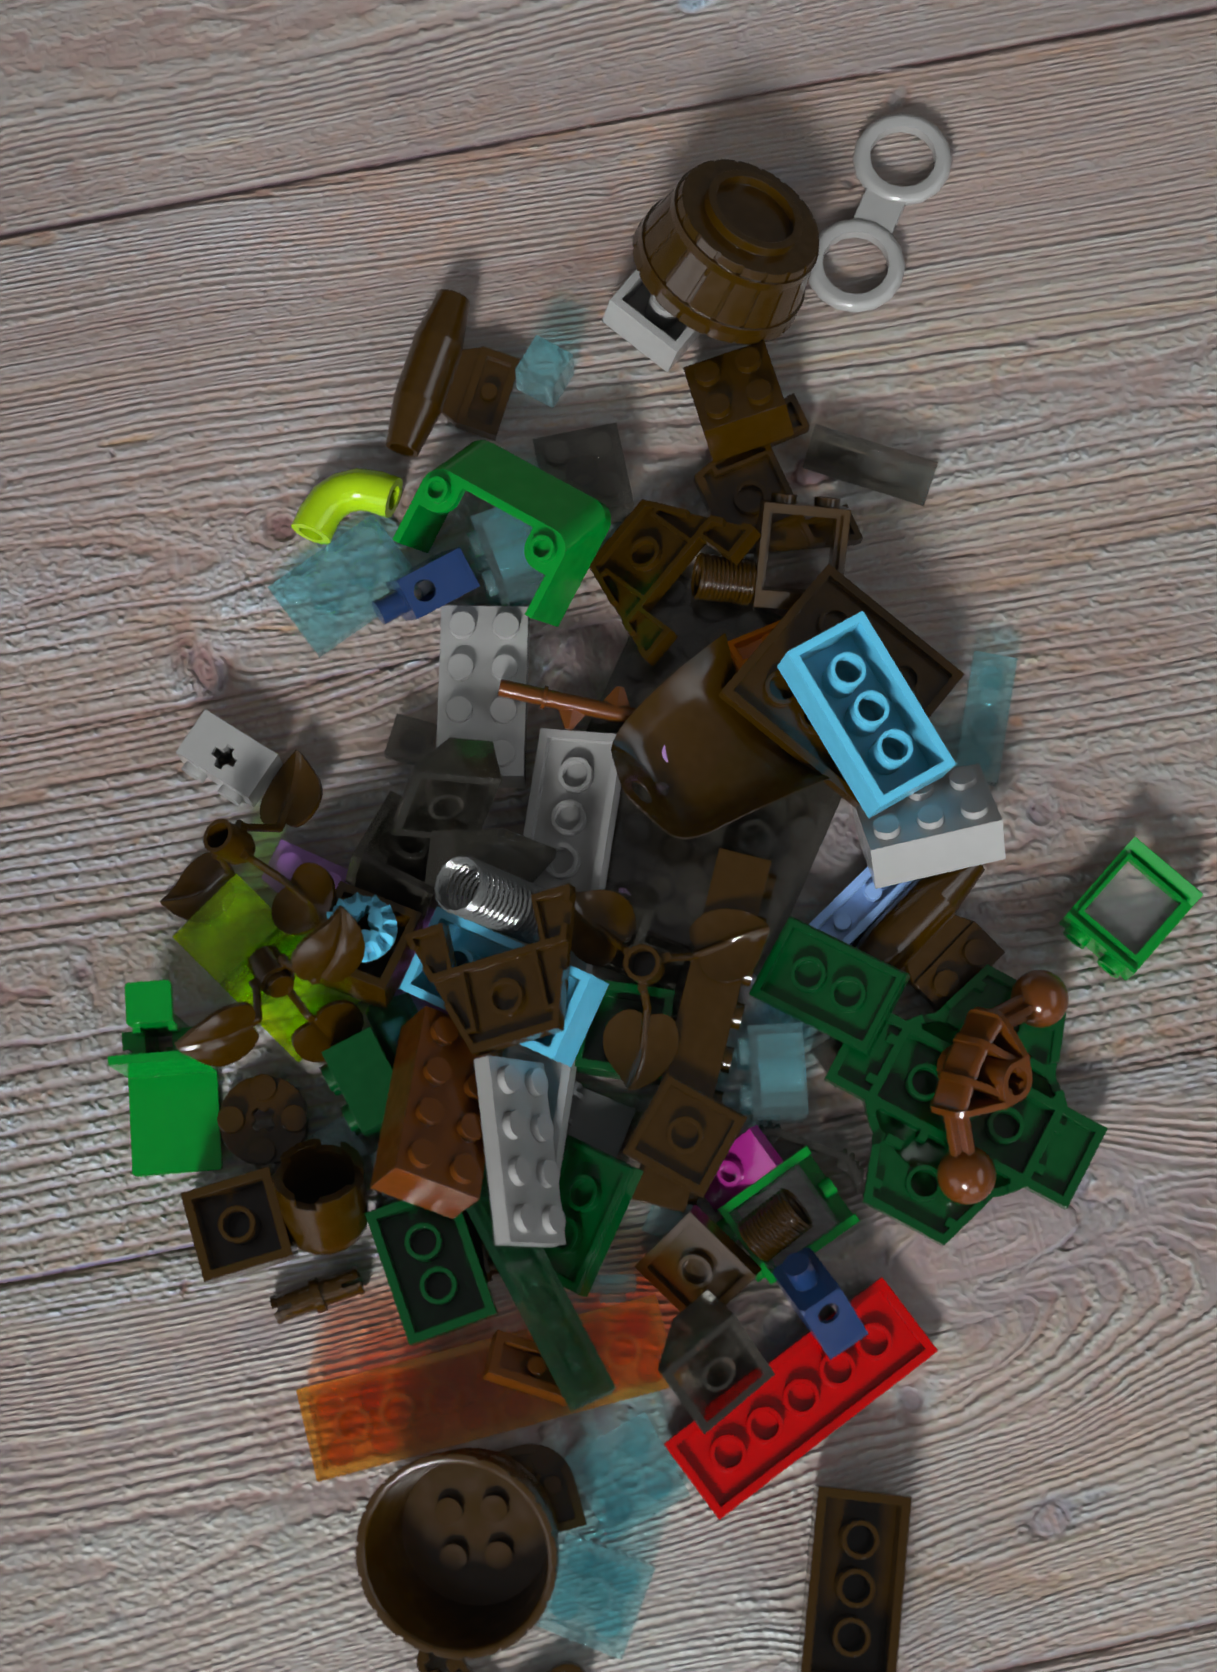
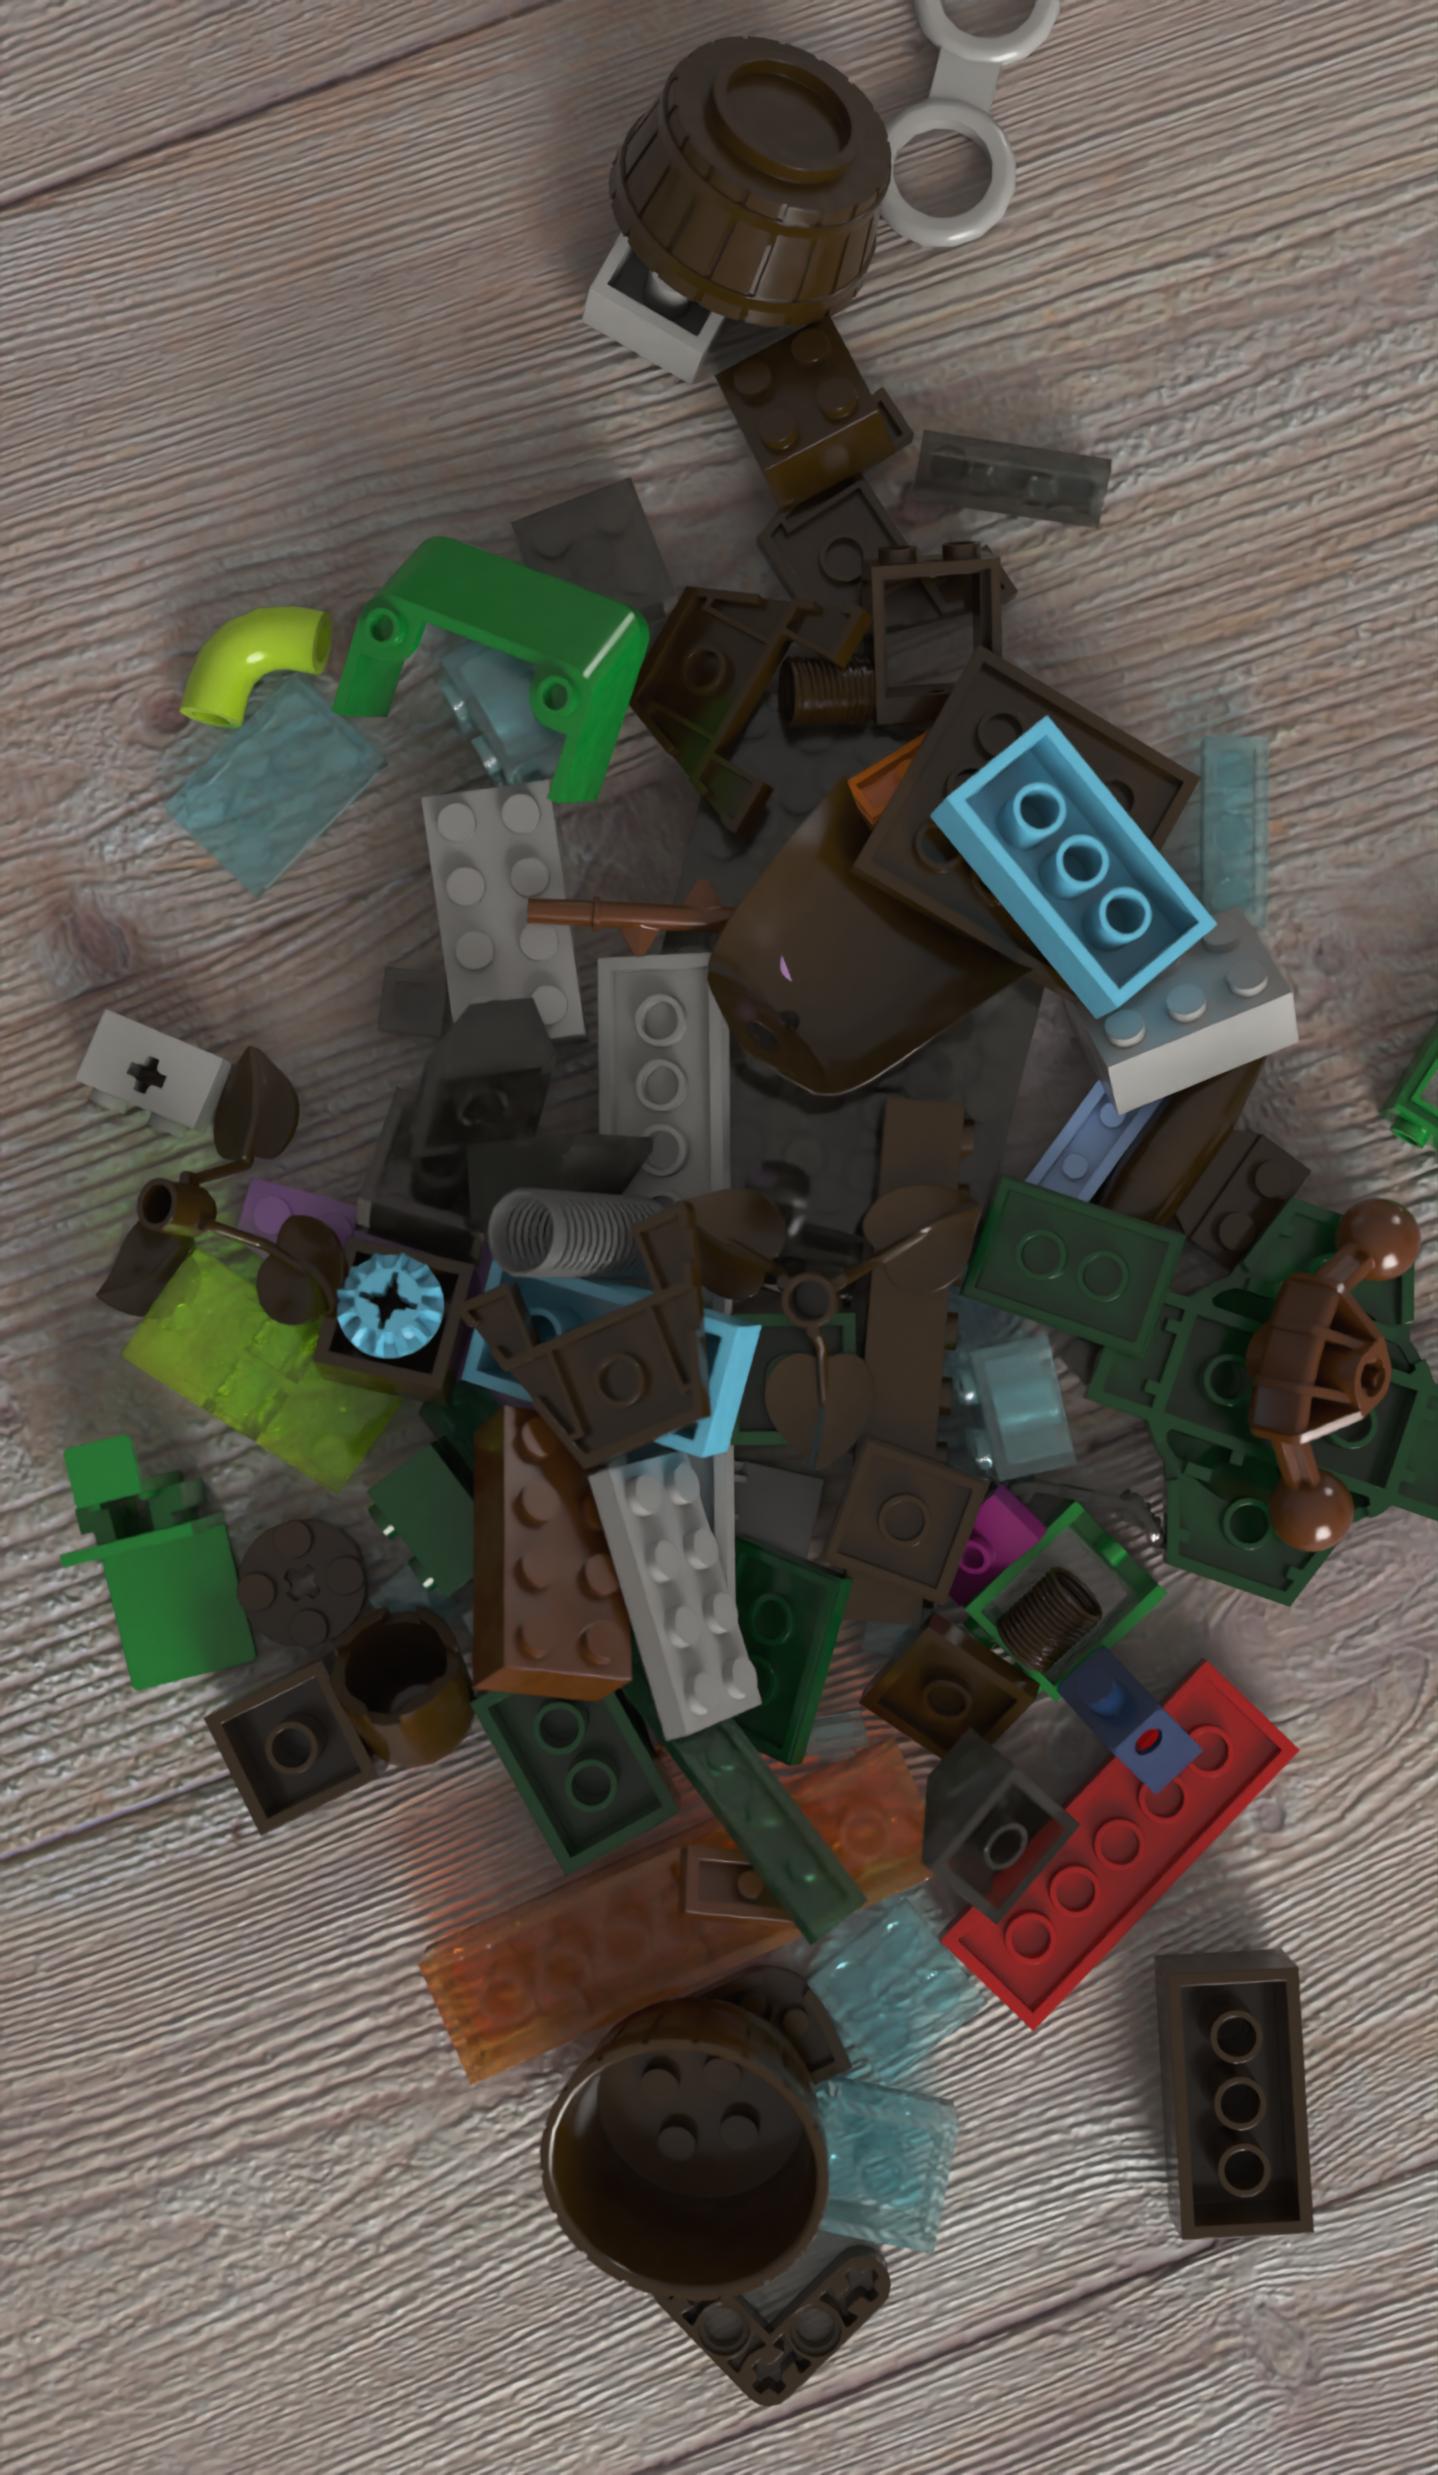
camera: 10 degrees left, 10 degrees up
(317, 1295) = (423, 1814): dark brown pin -> none
(325, 953) = (347, 1362): dark brown plant -> none
(440, 582) = (417, 760): dark blue torso -> none
(444, 378) = (364, 449): dark brown plate -> none
(544, 371) = (510, 413): clear light blue brick -> none

